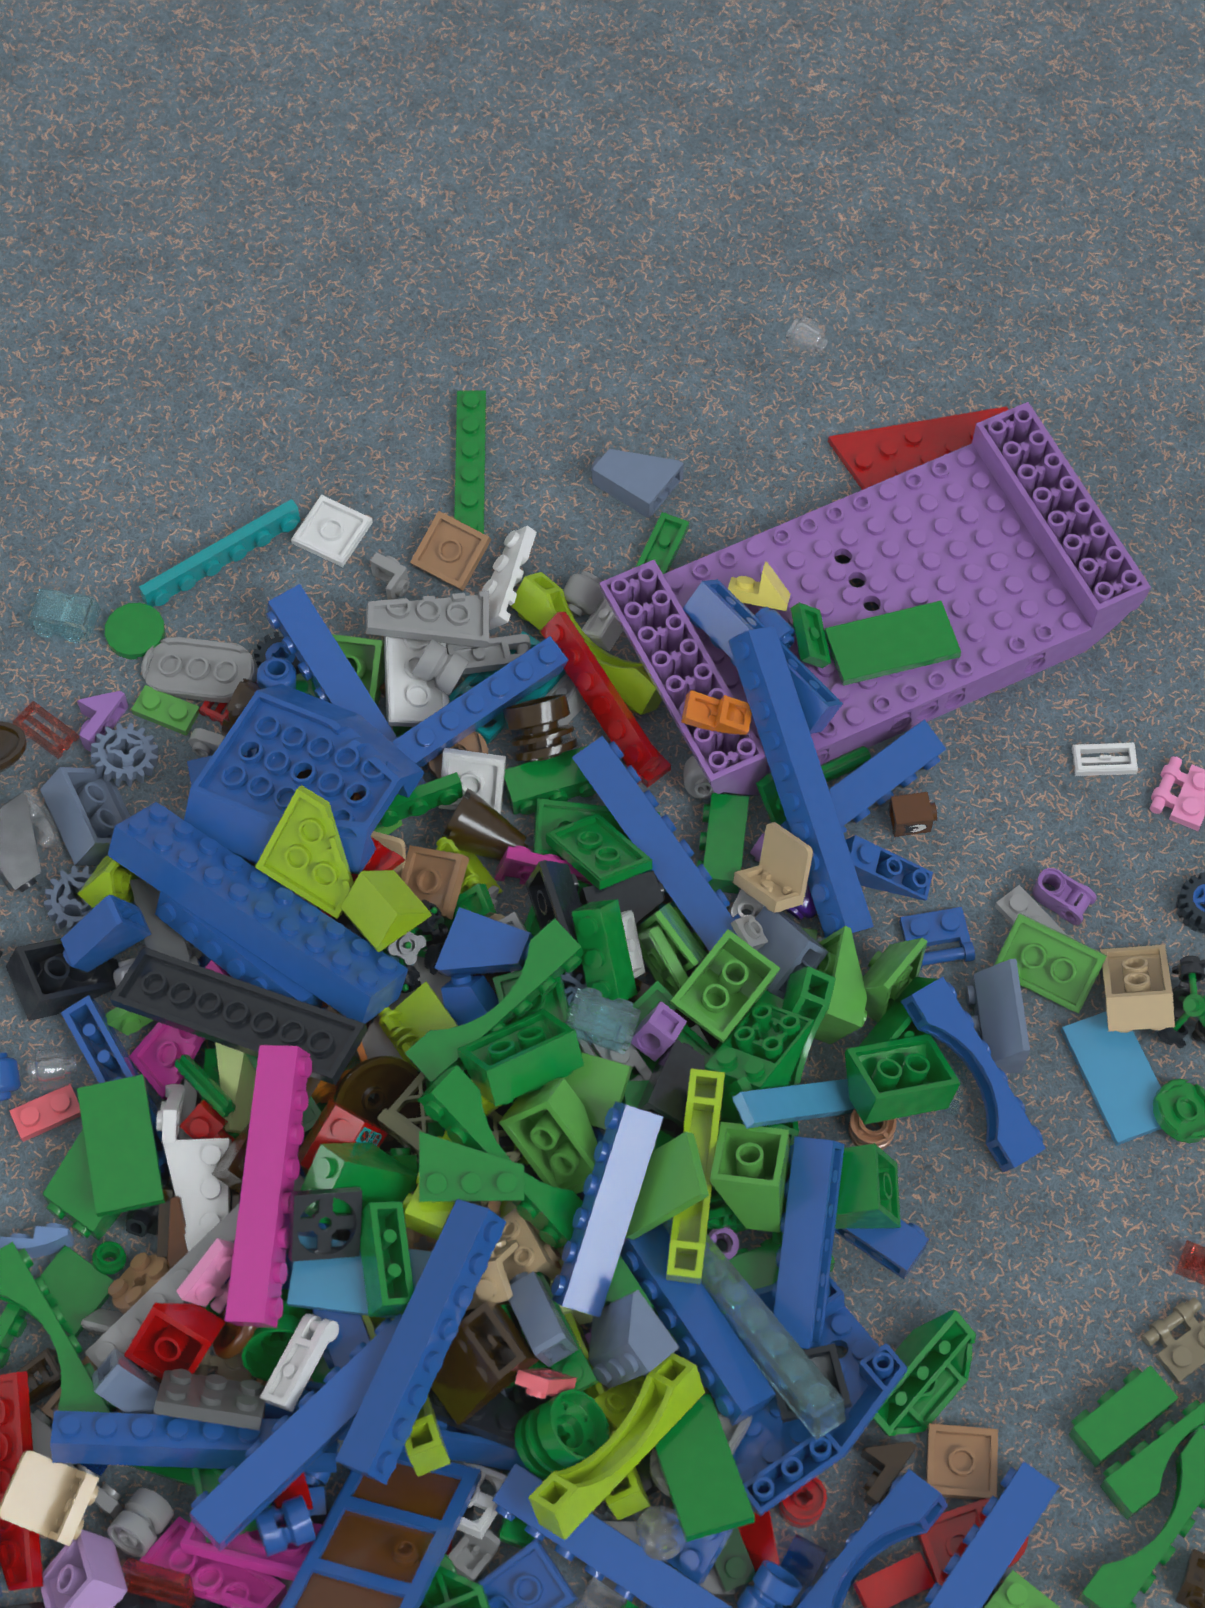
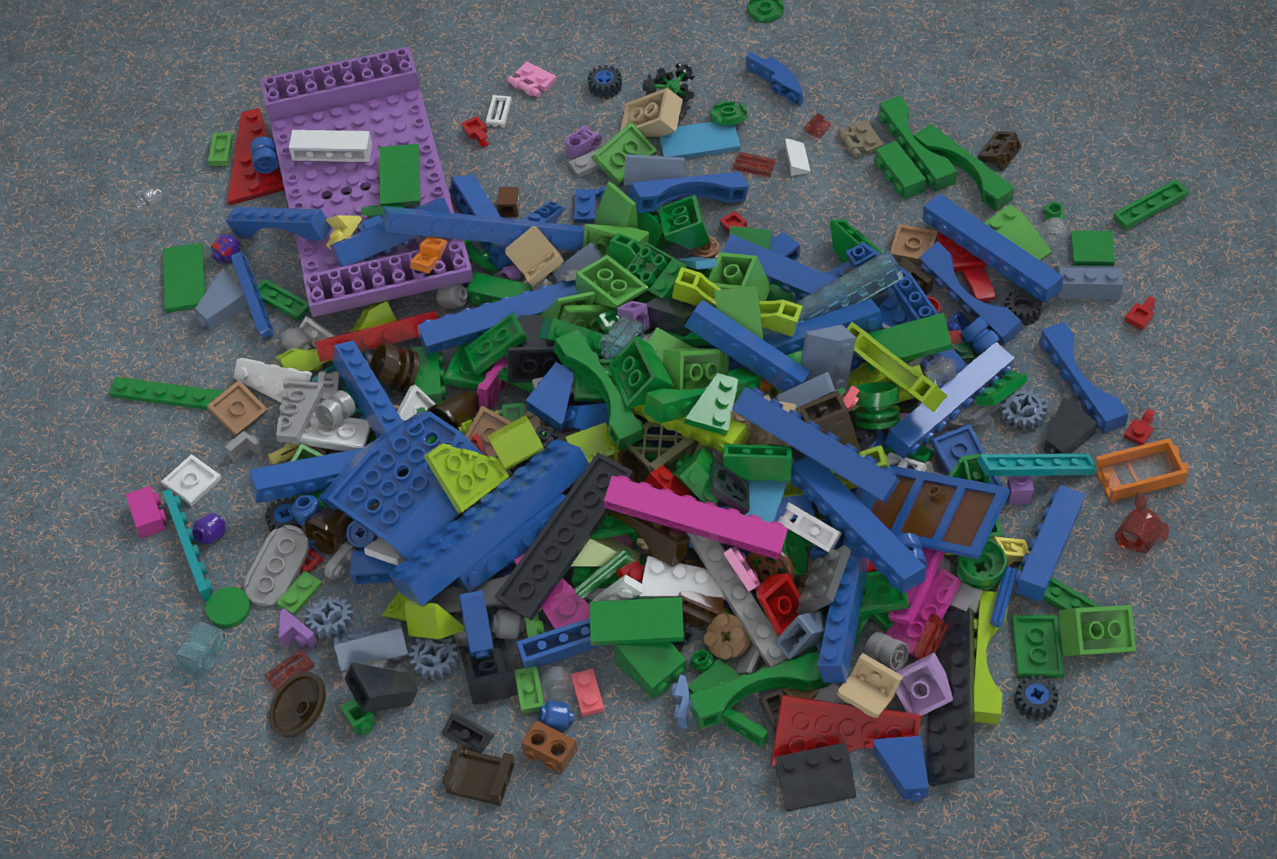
camera: 75 degrees left, 10 degrees down
(38, 1033) = (529, 689): none -> bright green plate
(248, 572) = (209, 528): none -> dark purple head
(265, 489) = (146, 512): none -> dark pink brick
(662, 510) = (252, 295): none -> blue beam
(680, 422) = (183, 277): none -> green tile
(735, 457) = (224, 248): none -> dark purple head
(770, 506) = (304, 222): none -> blue arch
(908, 454) = (264, 155): none -> blue wheel
(925, 533) = (330, 145): none -> white brick
(926, 400) = (220, 149): none -> bright green plate
(939, 1163) = (732, 219): none -> red plate
(1052, 733) = (476, 129): none -> red plate
(1087, 1147) = (754, 161): none -> clear red tile
(1116, 1239) = (796, 157): none -> white slope

